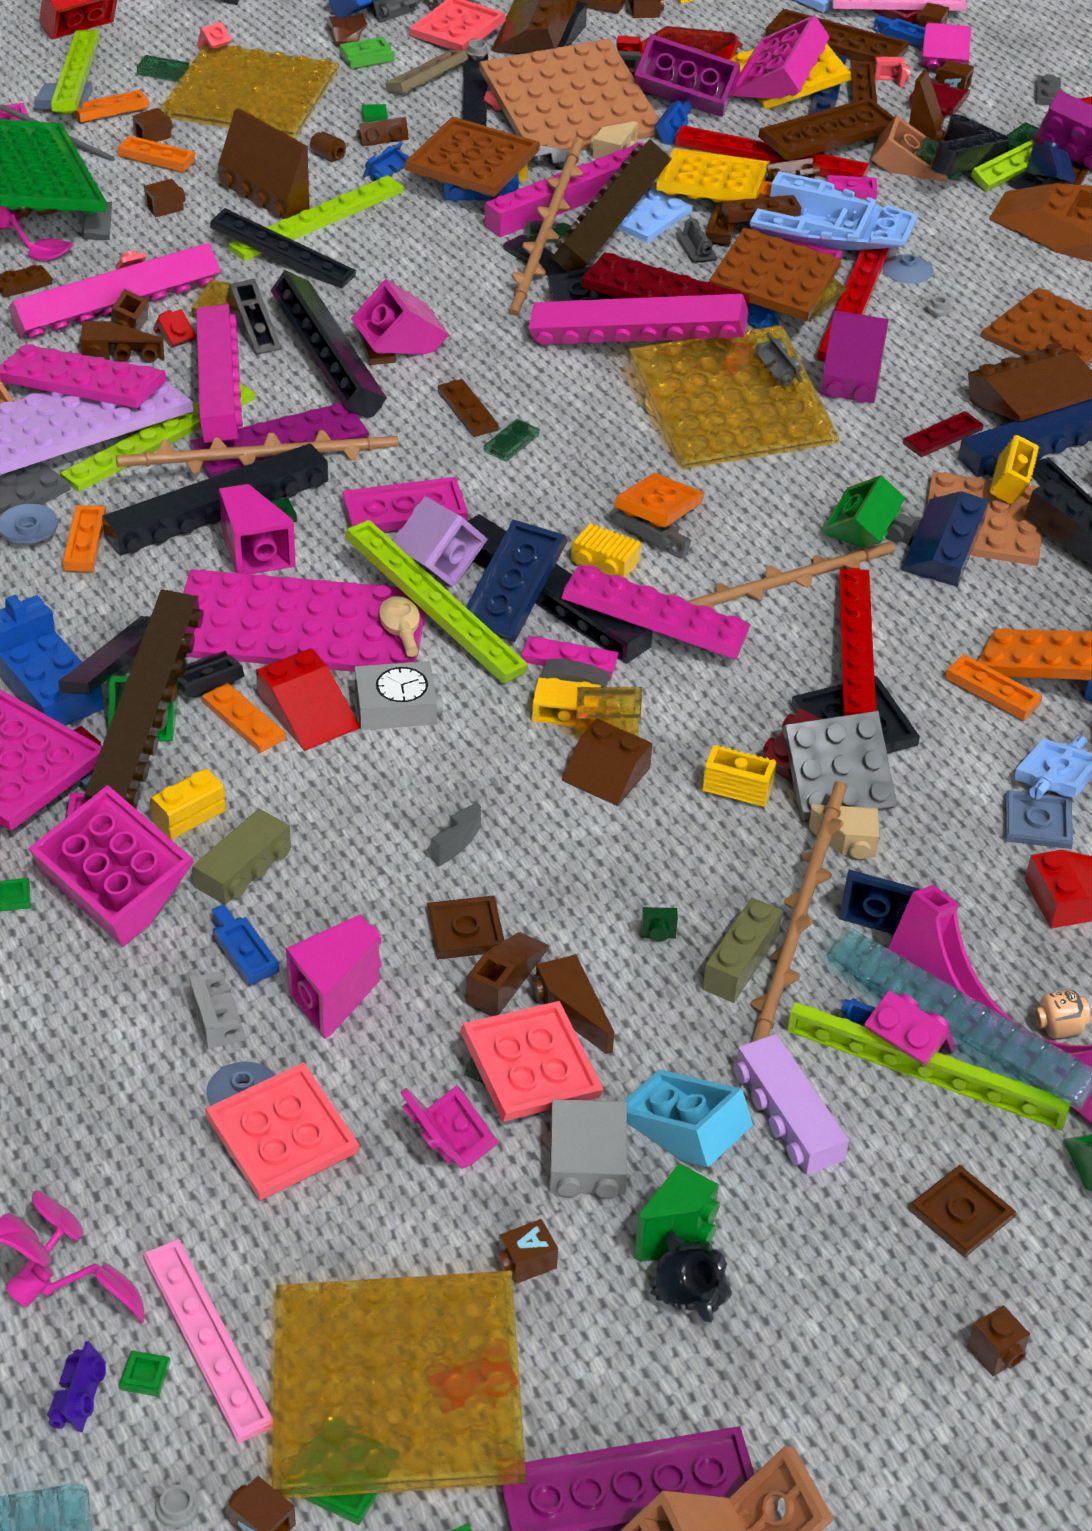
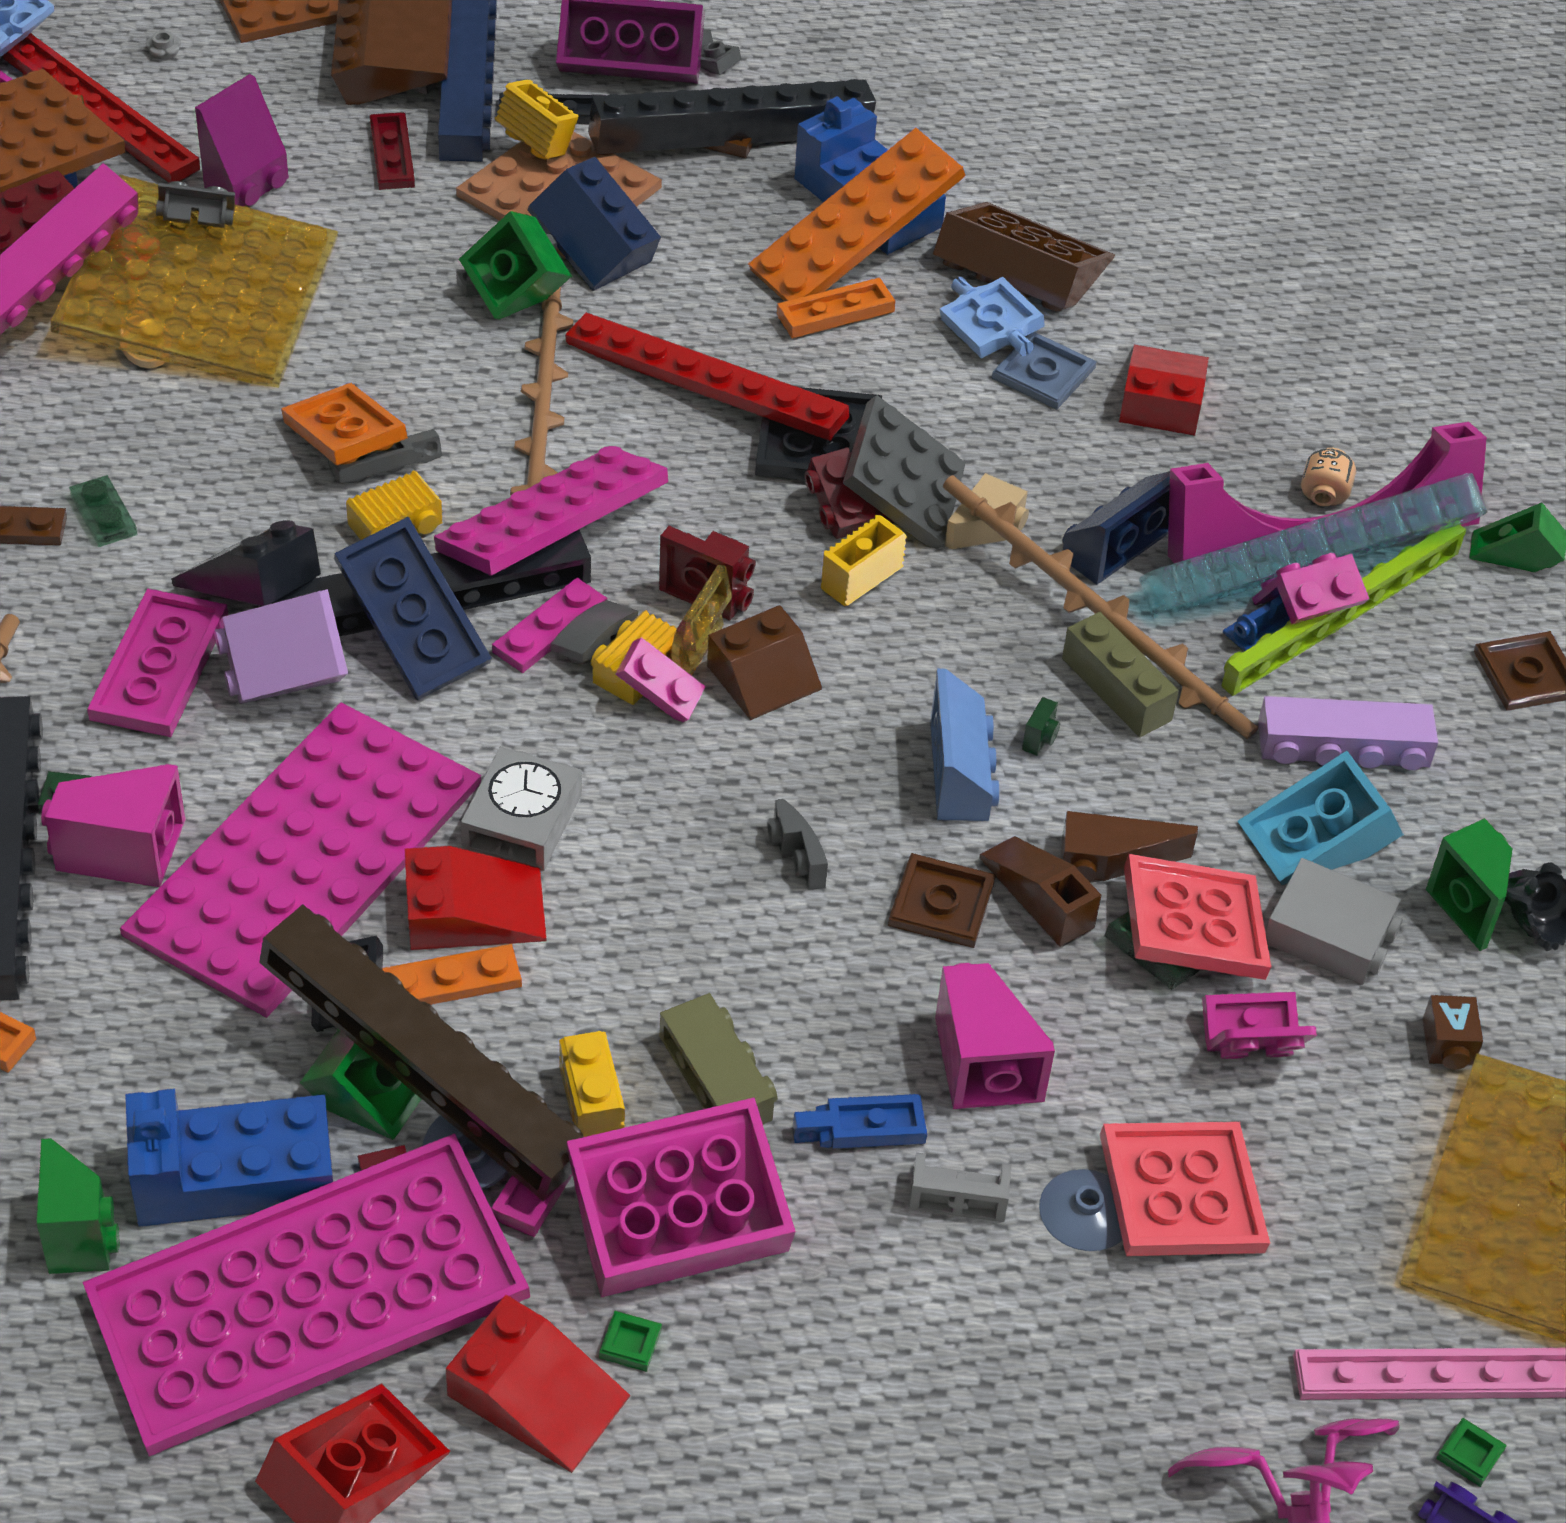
camera: 65 degrees left, 5 degrees up
(106, 660) = (281, 1058): black tile -> none
(402, 619) = (395, 747): tan piece -> none
(436, 601) = (382, 699): lime plate -> none
(493, 503) = (258, 567): none -> black slope
(546, 715) = (660, 680): none -> plate
(595, 879) = (962, 751): none -> medium blue slope
(660, 702) = (690, 561): none -> dark red plate
(908, 269) = (67, 35): sand blue dish -> none

